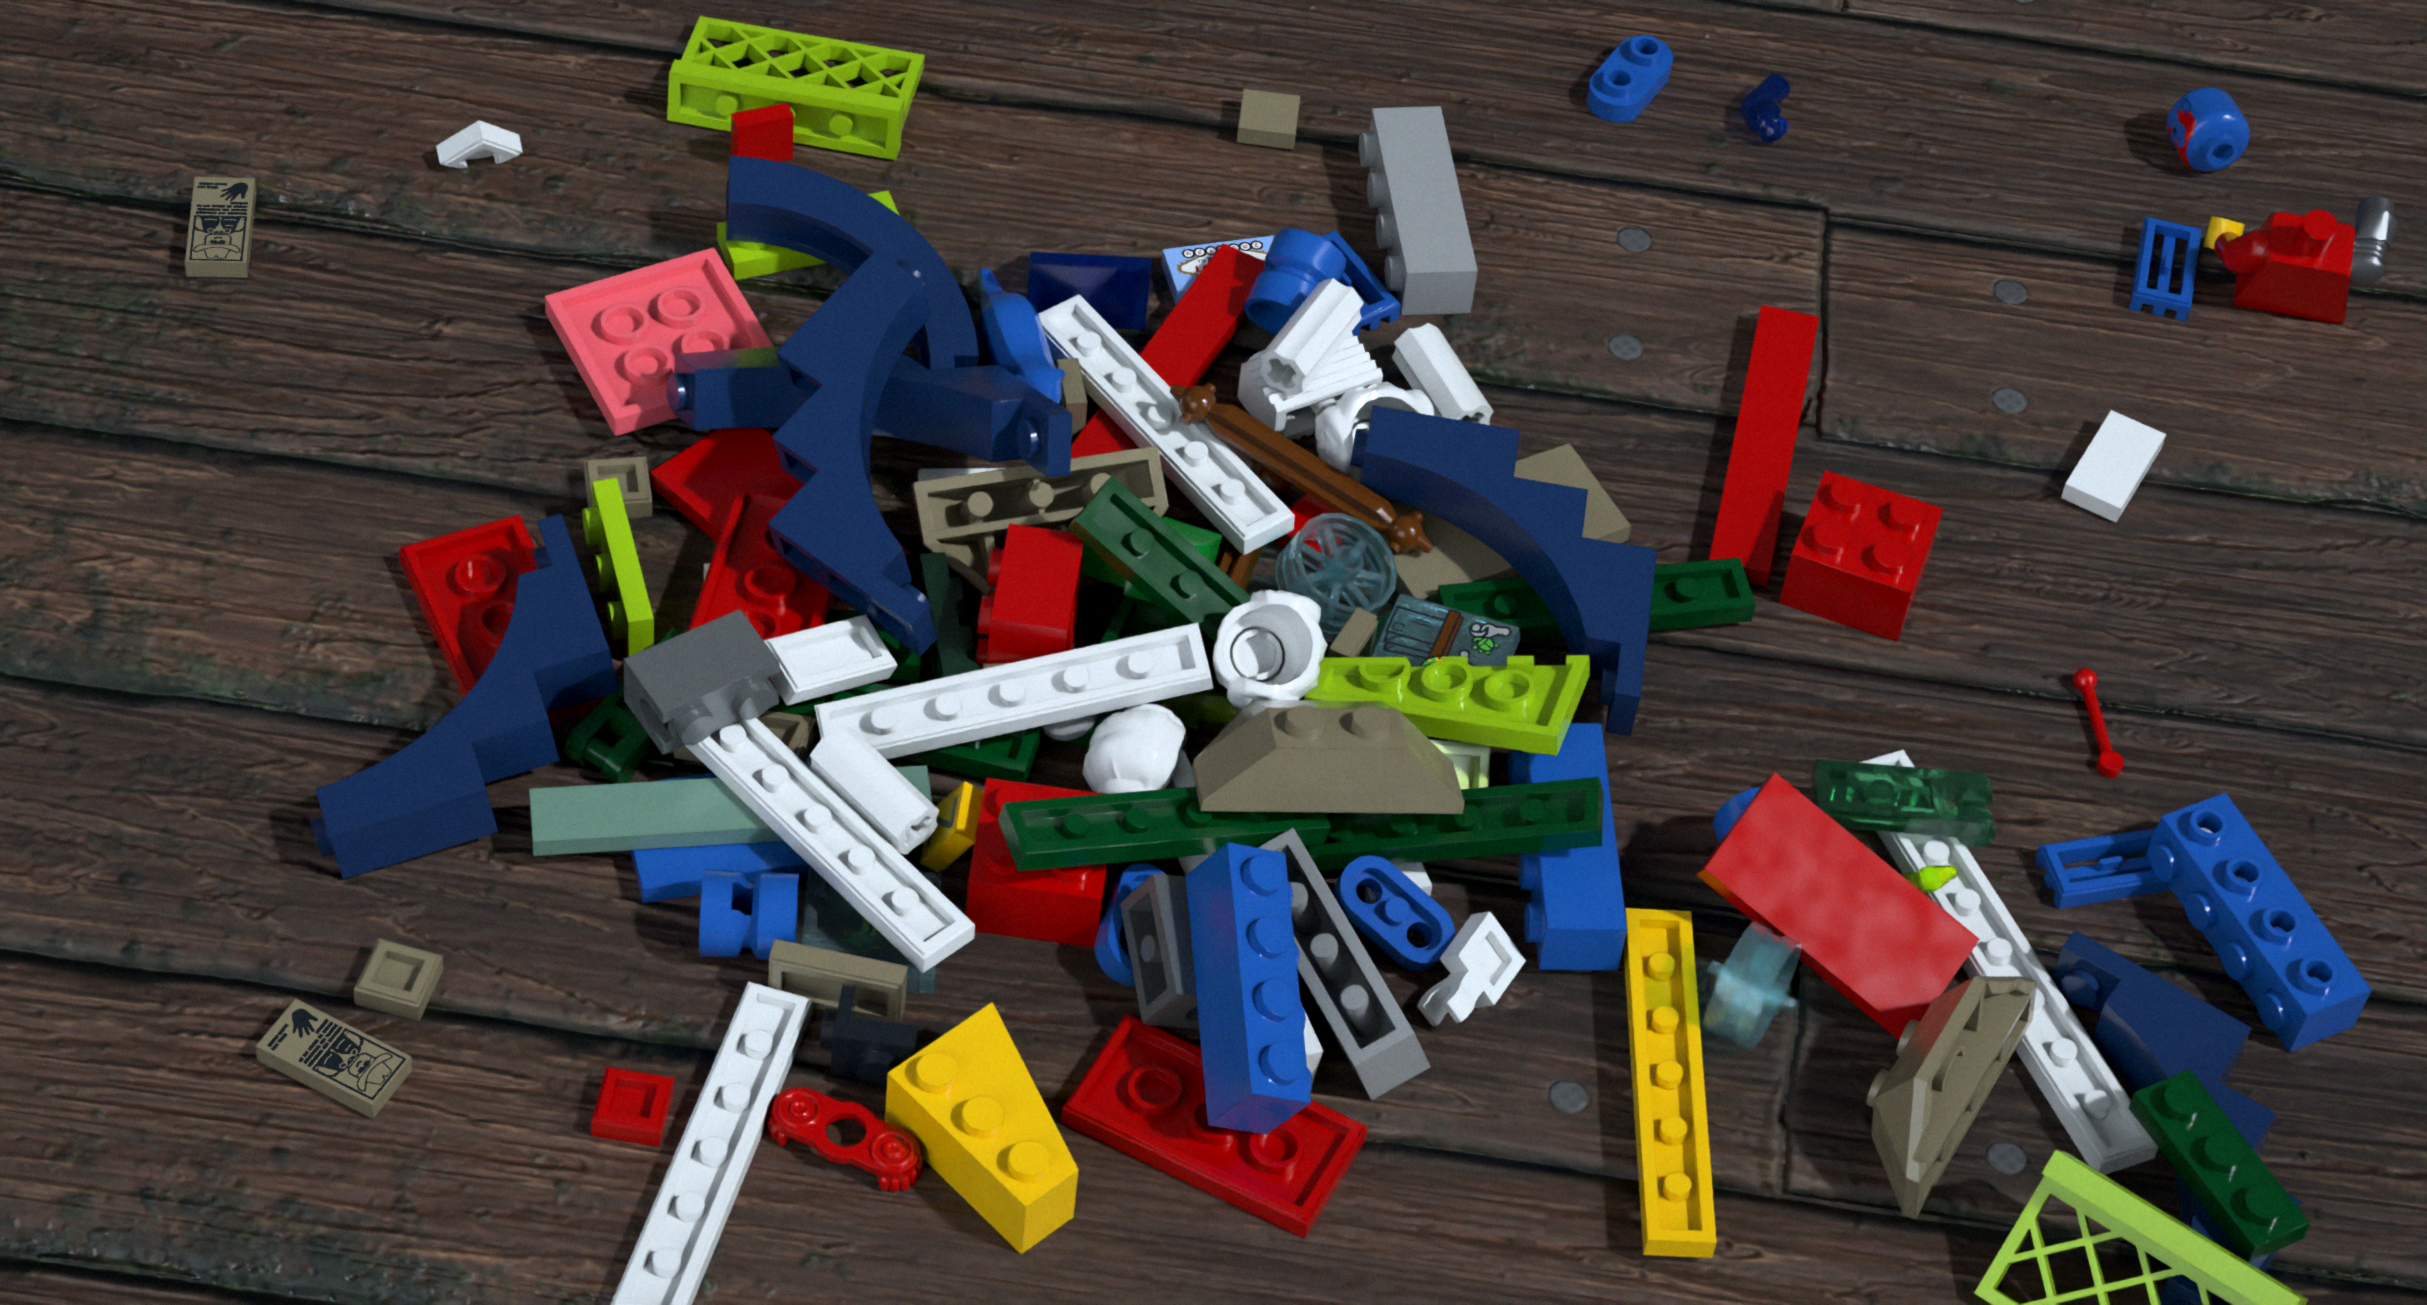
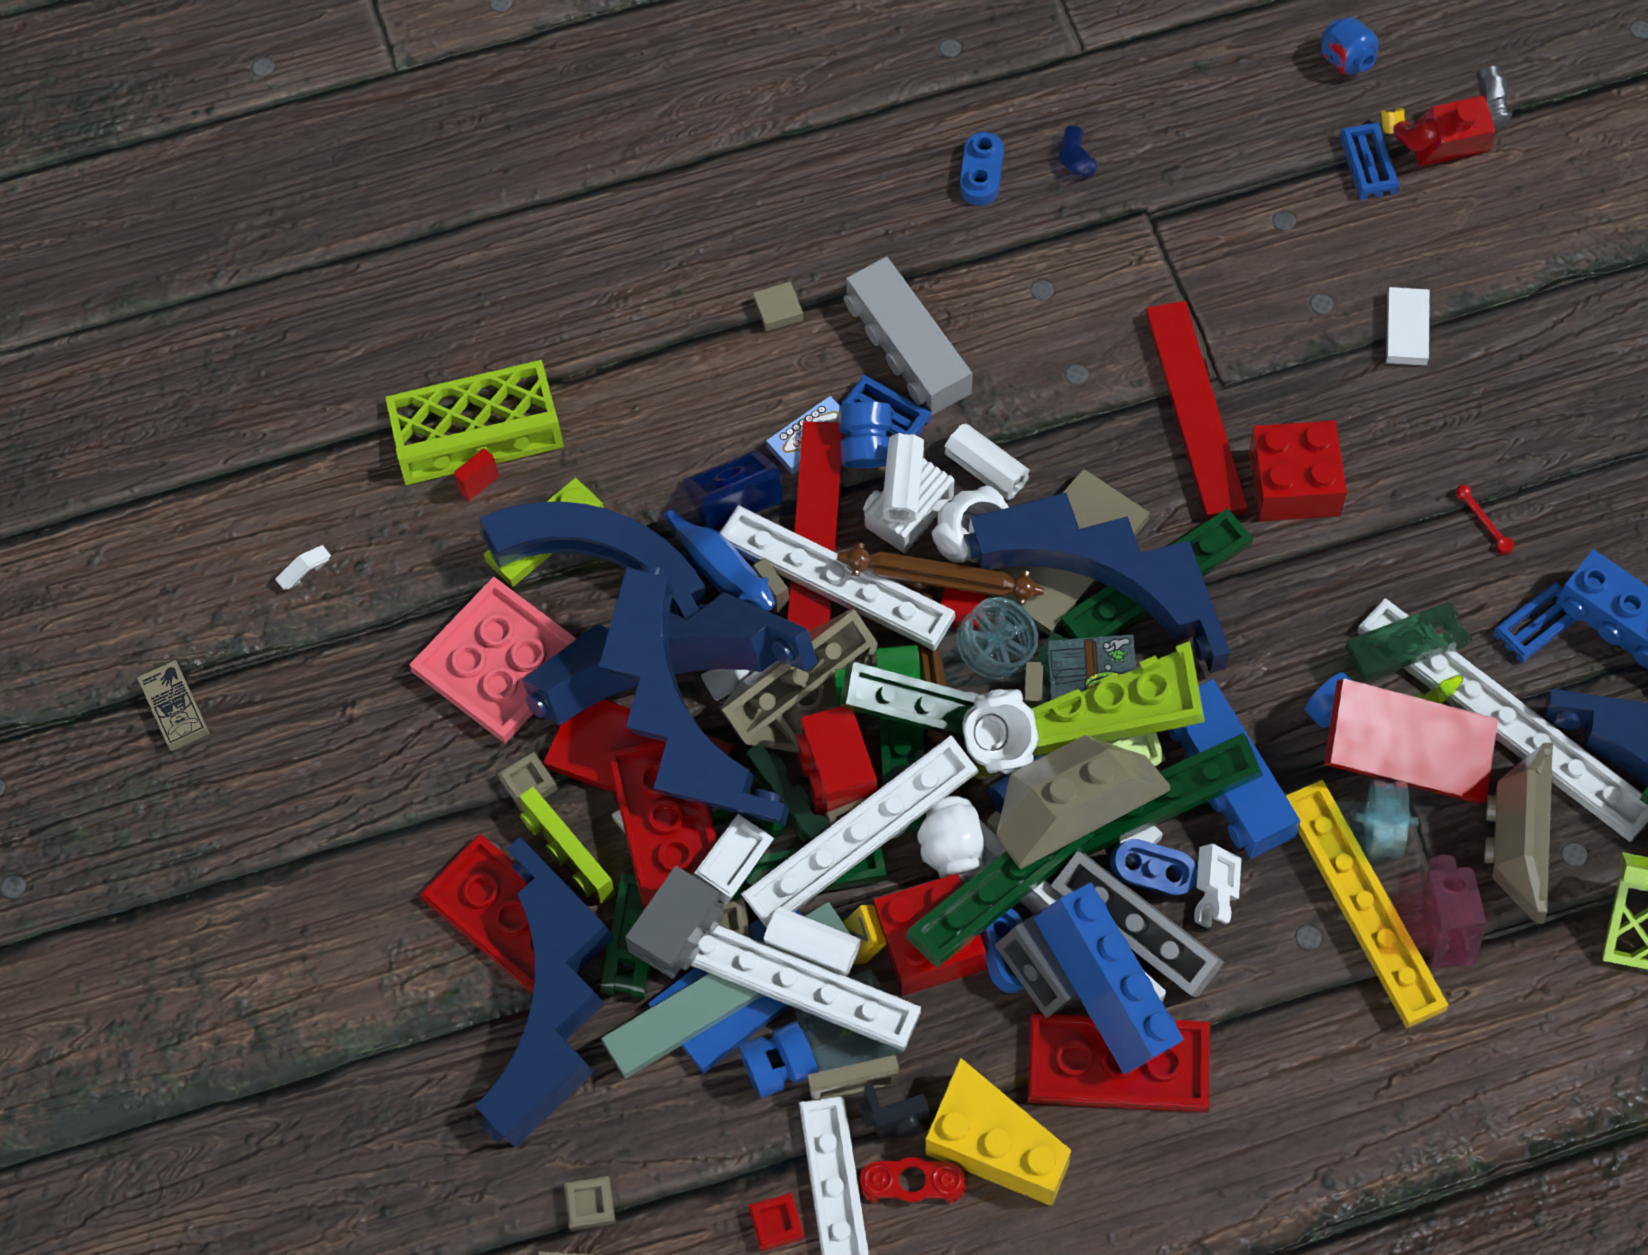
camera: 15 degrees left, 15 degrees up
(1787, 1111) = (1452, 914): none -> clear pink torso

